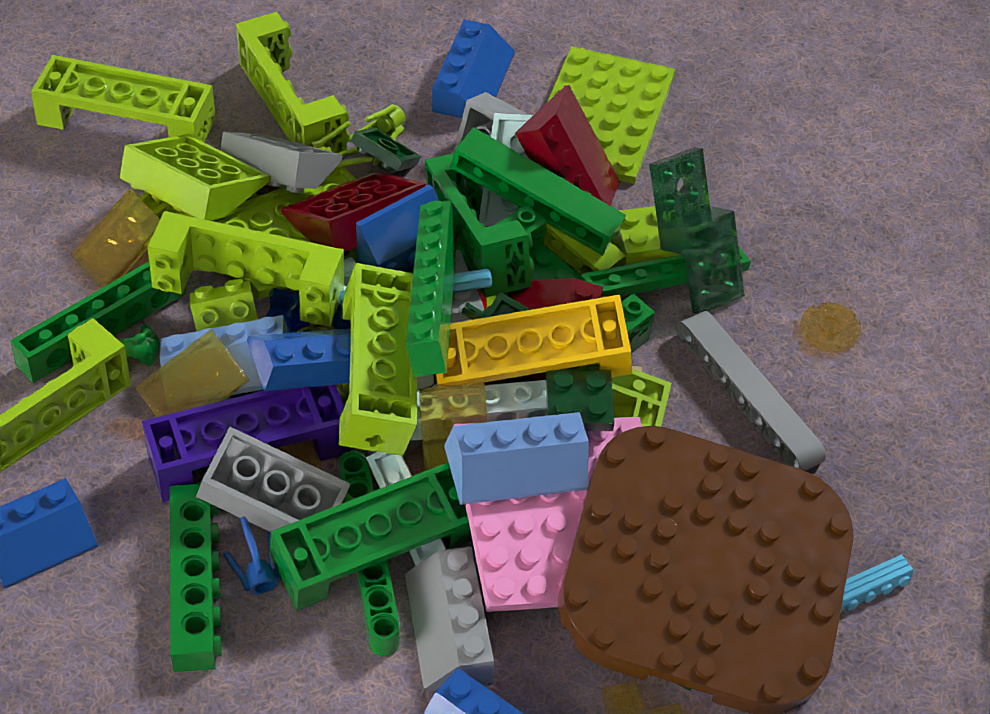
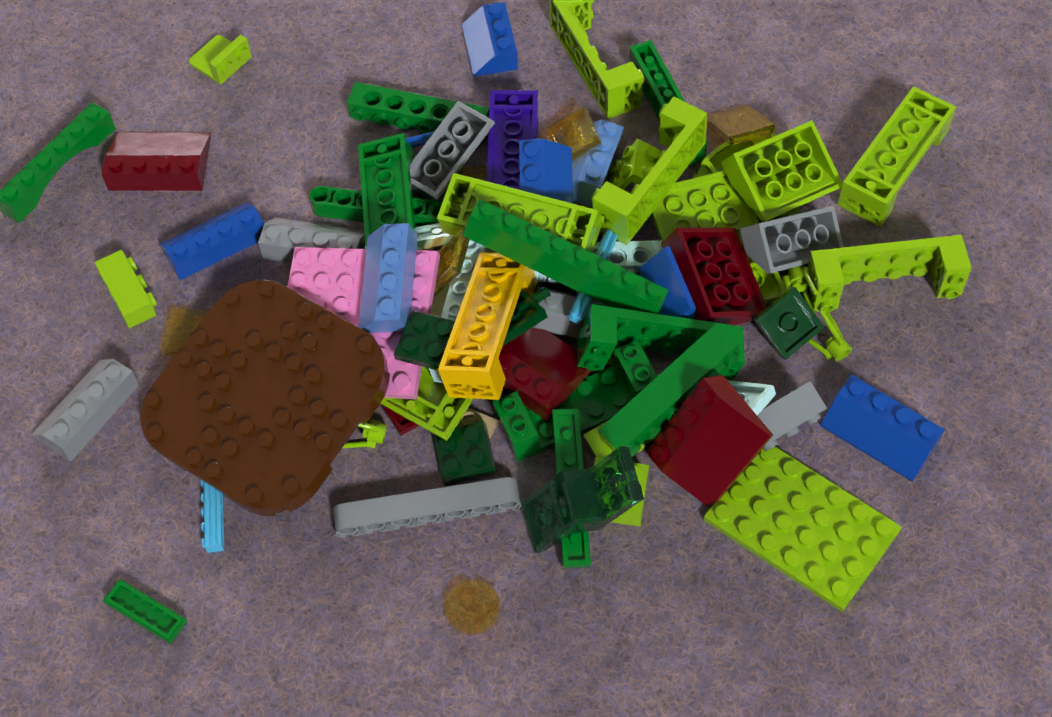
camera: 115 degrees right, 10 degrees up
(143, 345) = (634, 128): green piece -> none
(676, 365) = (465, 453): none -> dark green plate

